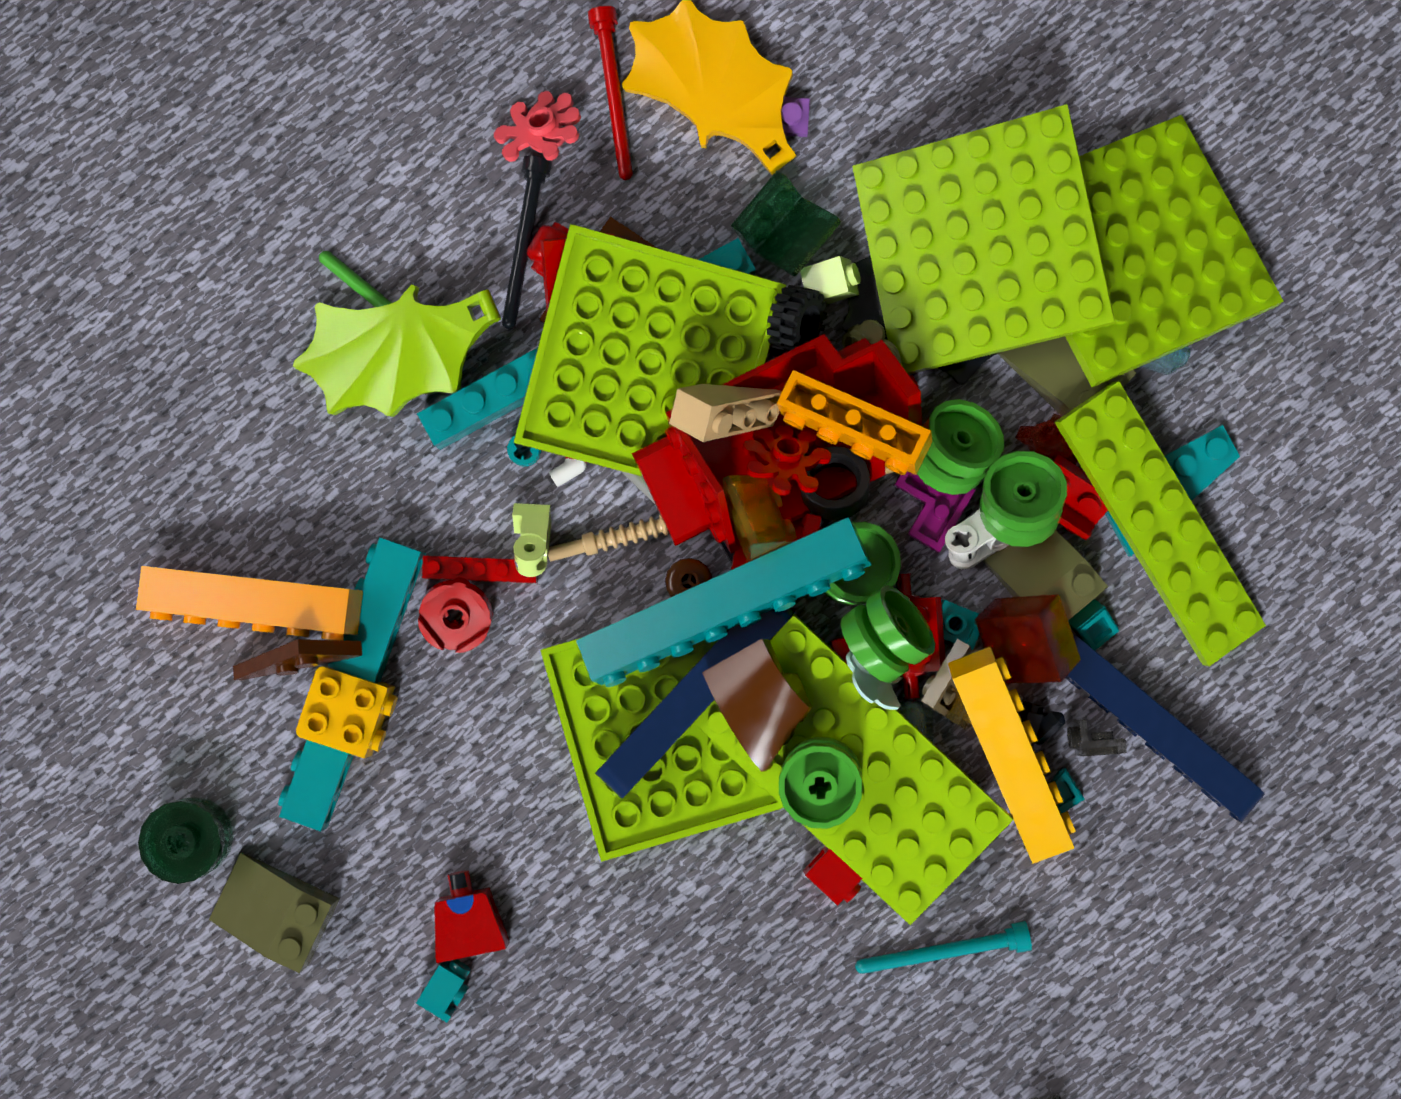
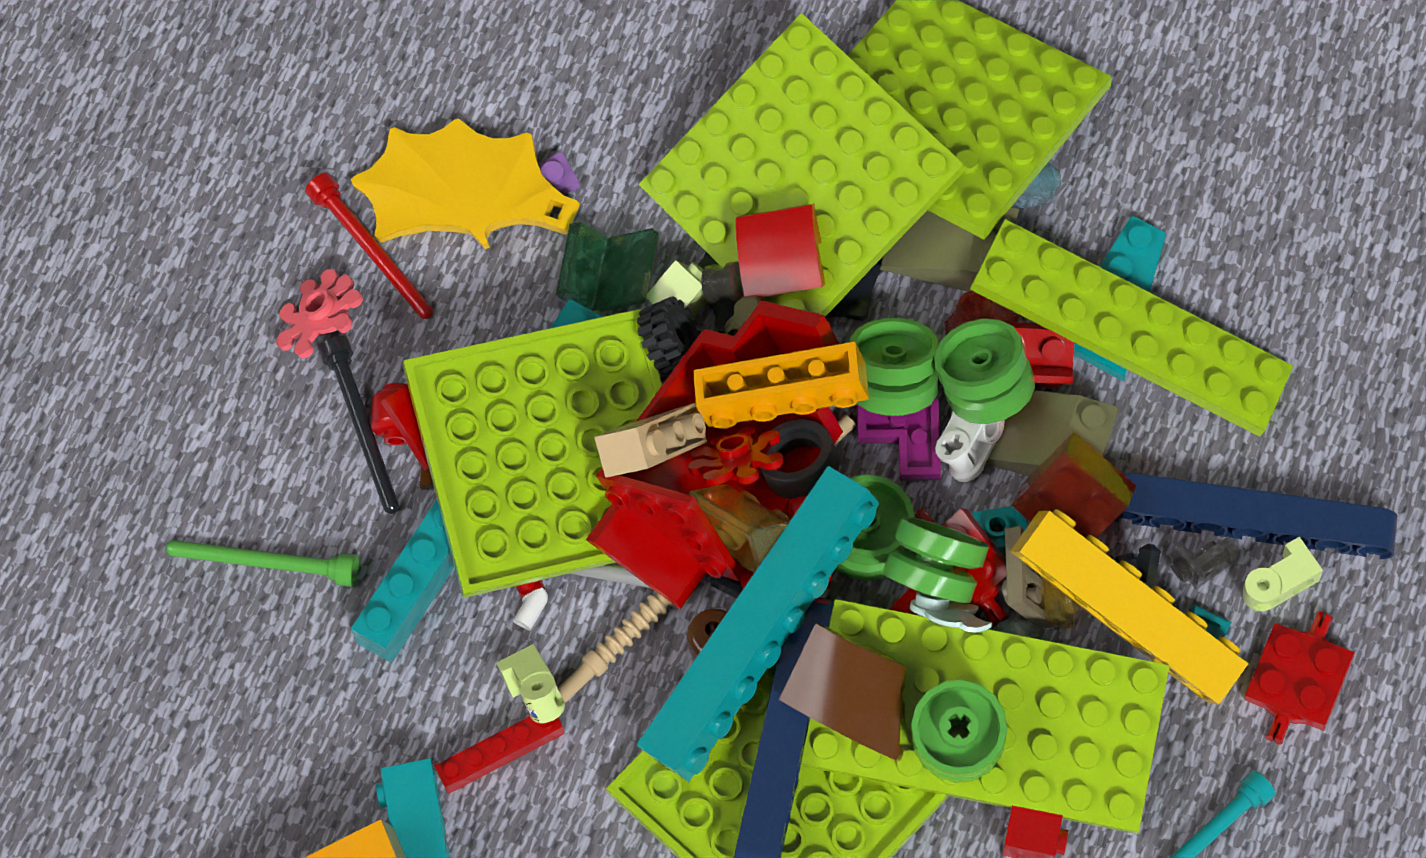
camera: 20 degrees left, 20 degrees down
(392, 350) = (290, 591): lime animal -> none
(455, 595) = (507, 827): red plate -> none
(512, 450) = (464, 618): teal bush -> none
(867, 297) = (722, 283): none -> clear smoke wheel
(924, 300) = (779, 251): none -> red slope
(1093, 624) = (1133, 455): teal slope -> none
(1108, 871) = (1299, 677): none -> red plate
(1145, 792) = (1273, 585): none -> yellowish green leg

